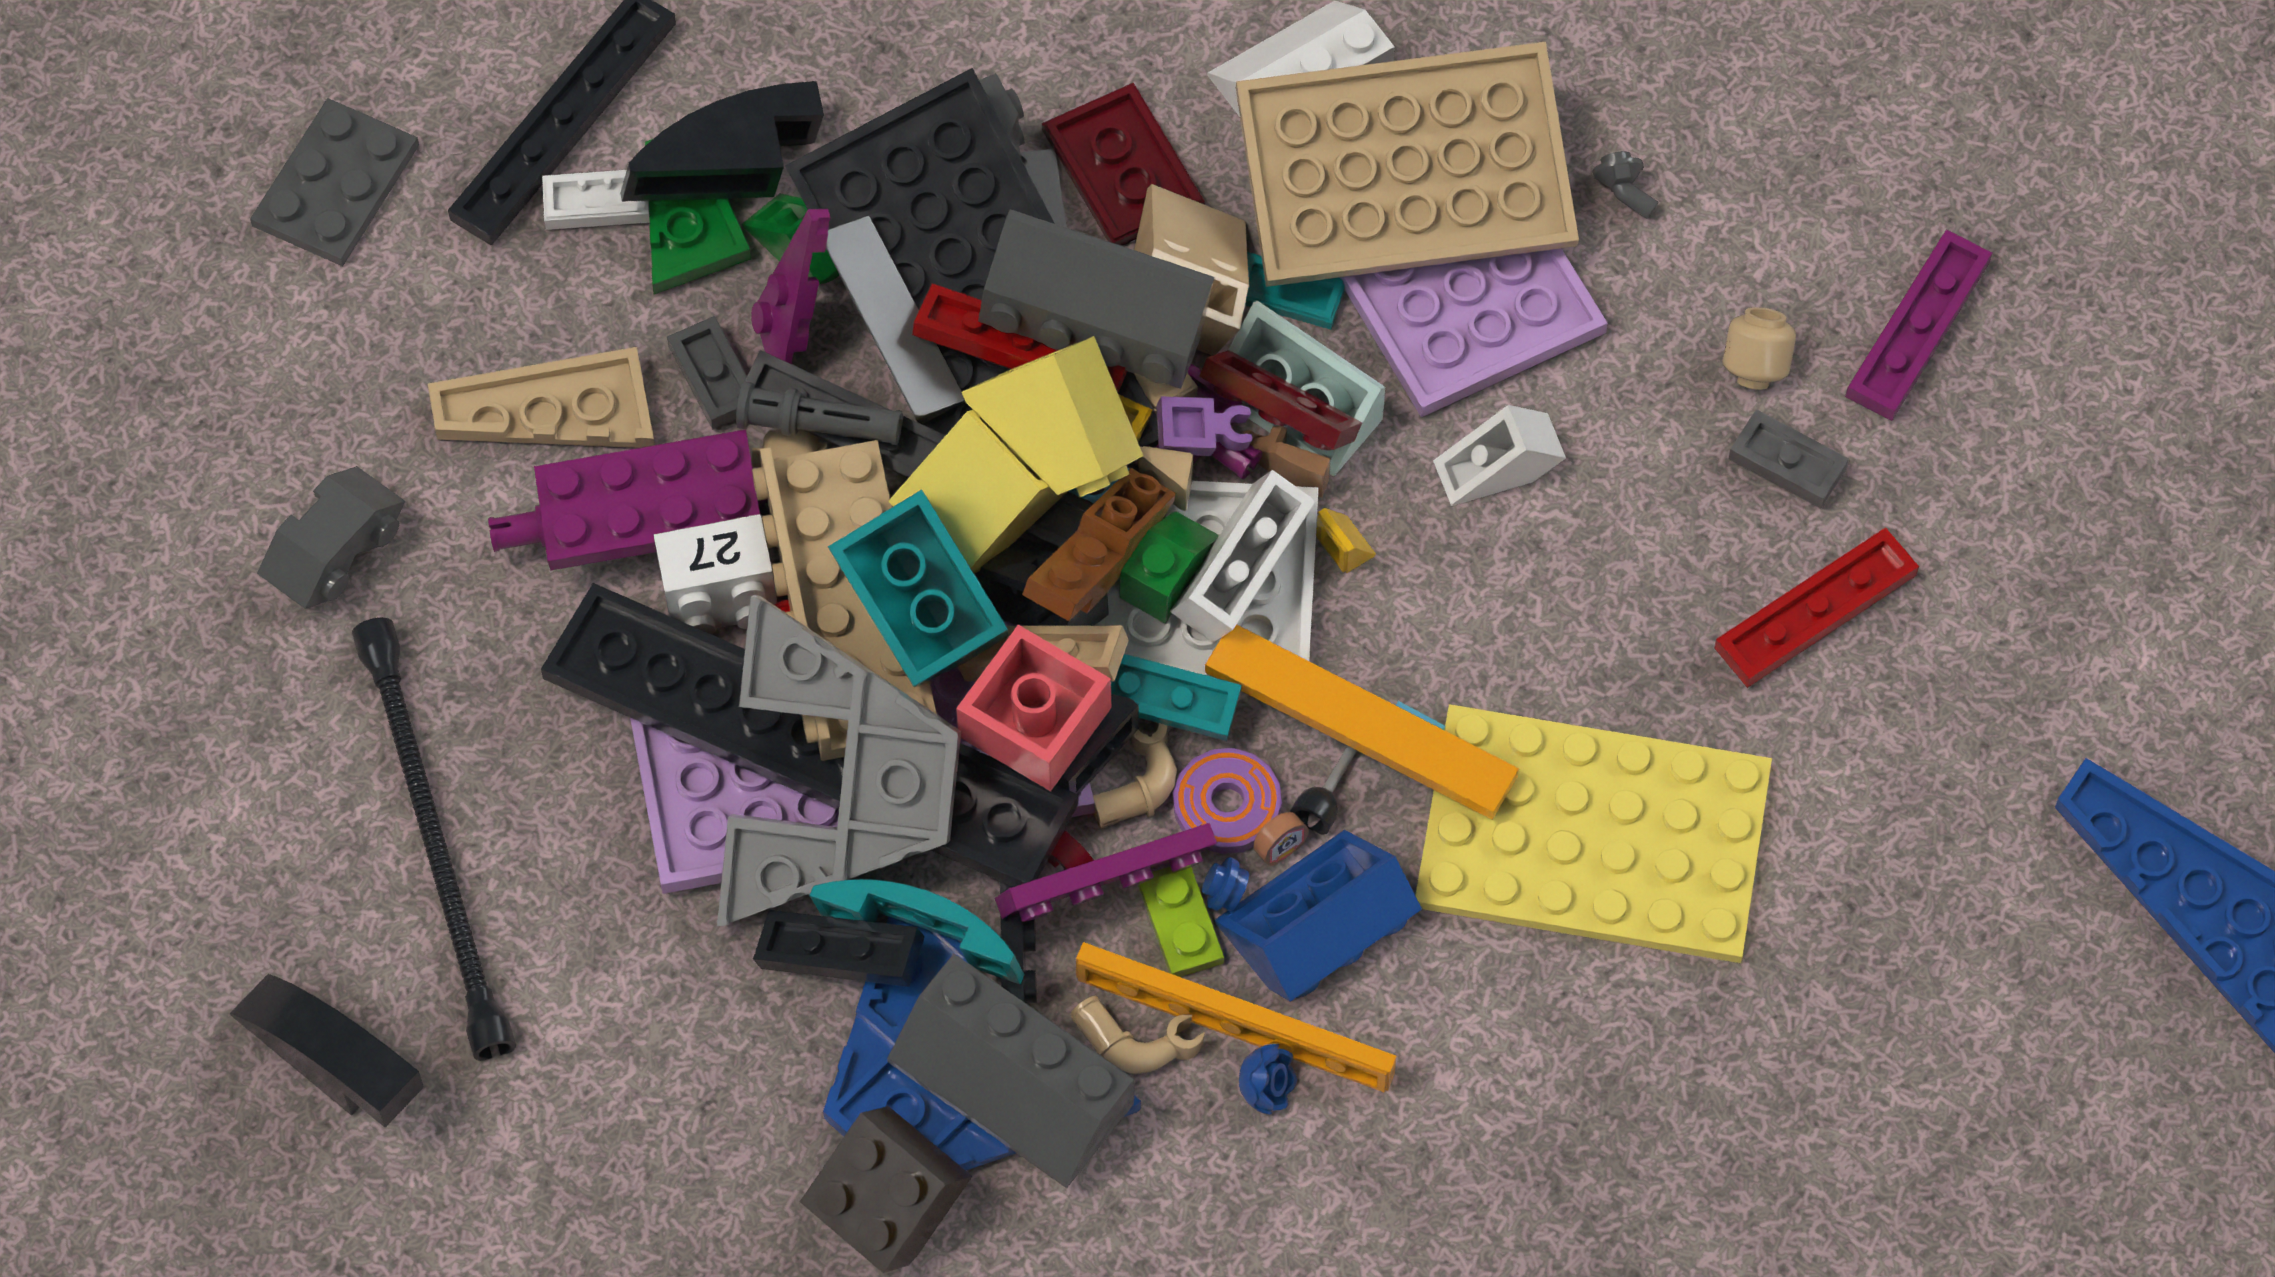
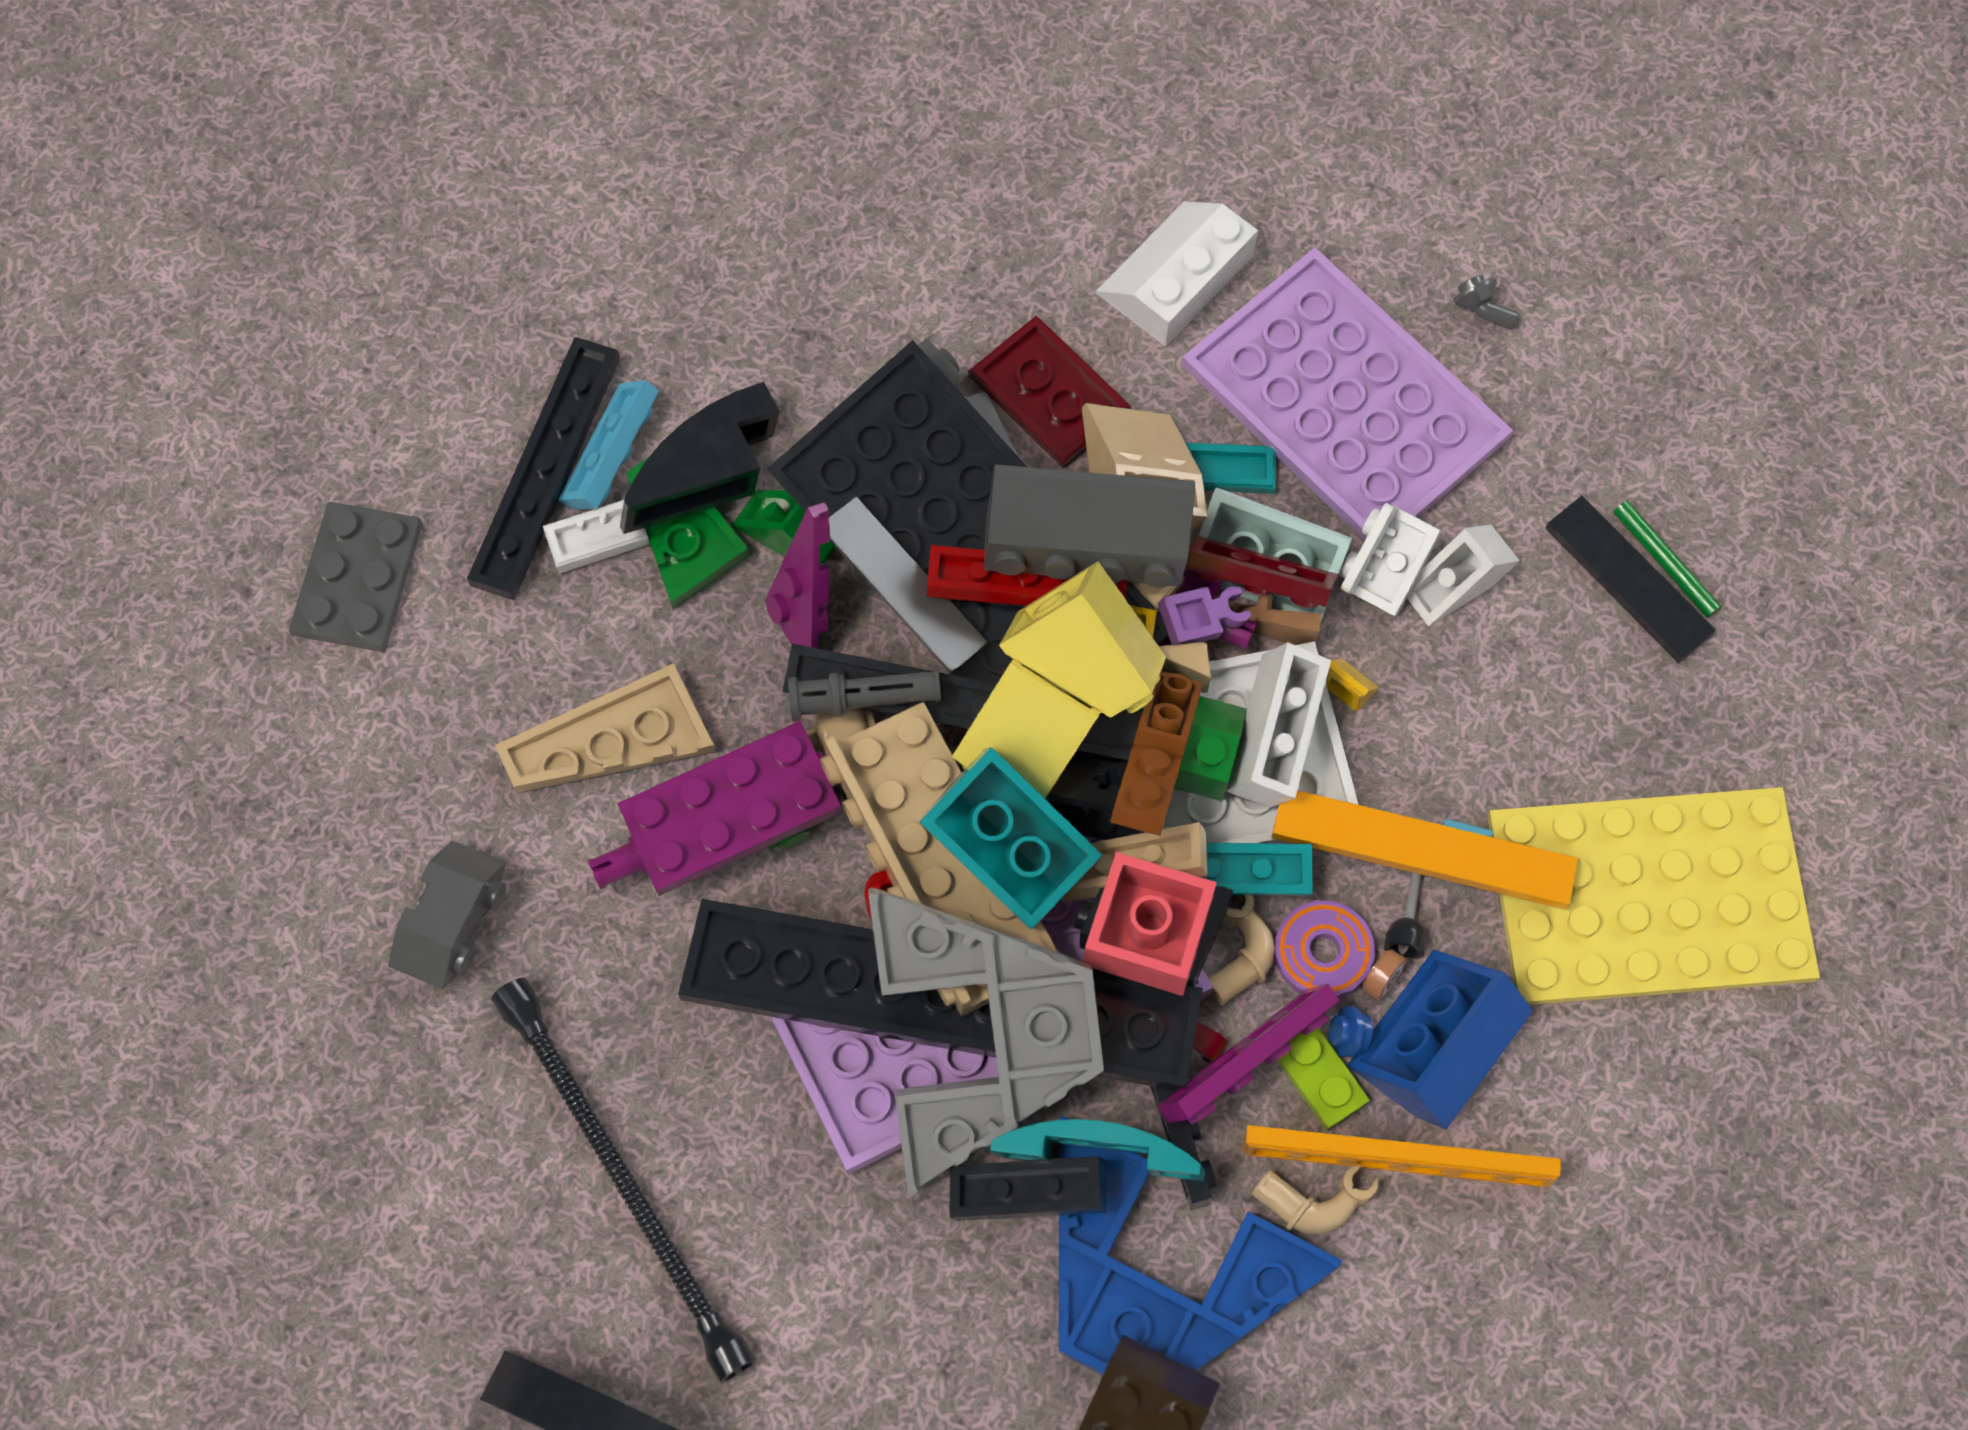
camera: 15 degrees left, 5 degrees up
(636, 110) = (609, 445): none -> medium azure plate
(709, 369) = (746, 668): dark grey plate -> none
(715, 571) = (813, 862): white brick -> none
(1011, 1071) = (1224, 1270): dark grey slope -> none
(1267, 1078) = (1445, 1207): blue plate -> none
(1406, 164) = (1303, 332): tan plate -> none
(1423, 419) = (1389, 558): none -> white bracket
(1685, 509) = (1630, 579): none -> black tile
(1733, 498) = (1667, 559): none -> green bar
(1759, 347) = (1650, 420): tan head -> none
(1788, 458) = (1704, 512): flat silver plate -> none
(1816, 607) = (1772, 640): red plate -> none
(1918, 325) = (1772, 367): magenta plate -> none

